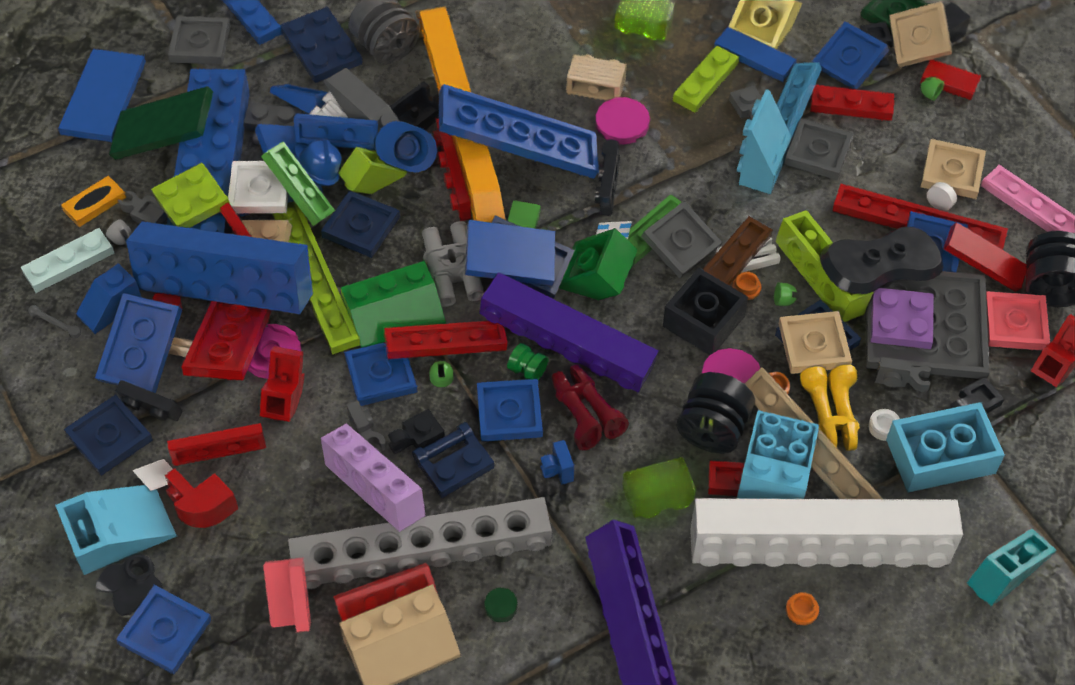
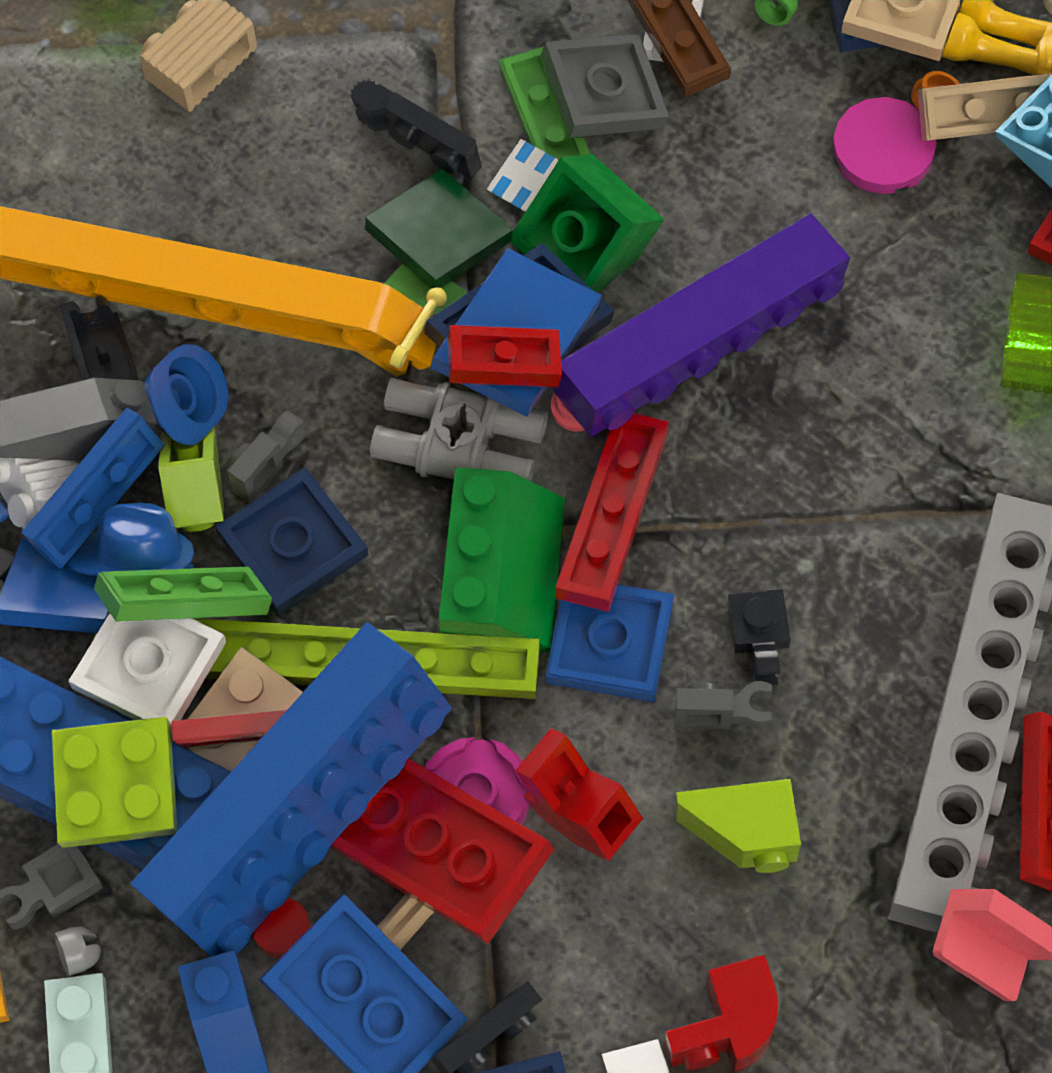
camera: 60 degrees left, 10 degrees up
(216, 444) = (634, 951): red tile -> none
(307, 466) = (745, 822): none -> lime slope
(373, 477) = (844, 722): lavender brick -> none
(395, 195) = (259, 462): none -> dark grey plate
(441, 381) = (660, 556): bright green hinge -> none
(453, 177) = (265, 348): red plate -> none
(458, 467) = (855, 598): dark blue plate -> none
(468, 211) = (435, 299): none -> light yellow hinge
(483, 244) = (504, 356): none -> red plate
(509, 410) = (791, 477): blue plate -> none
(517, 131) = (275, 208): blue plate -> none
(526, 362) = (716, 411): green wheel -> none
(558, 208) = (438, 229): none -> dark green tile
(558, 463) = (930, 447): blue tile -> none
(588, 429) = (797, 370): dark red piece -> none
(622, 120) = (303, 57): dark pink tile -> none
(705, 311) = (766, 117): black brick -> none
(716, 412) = (964, 189): black wheel -> none
(747, 284) = (736, 42): orange plate -> none

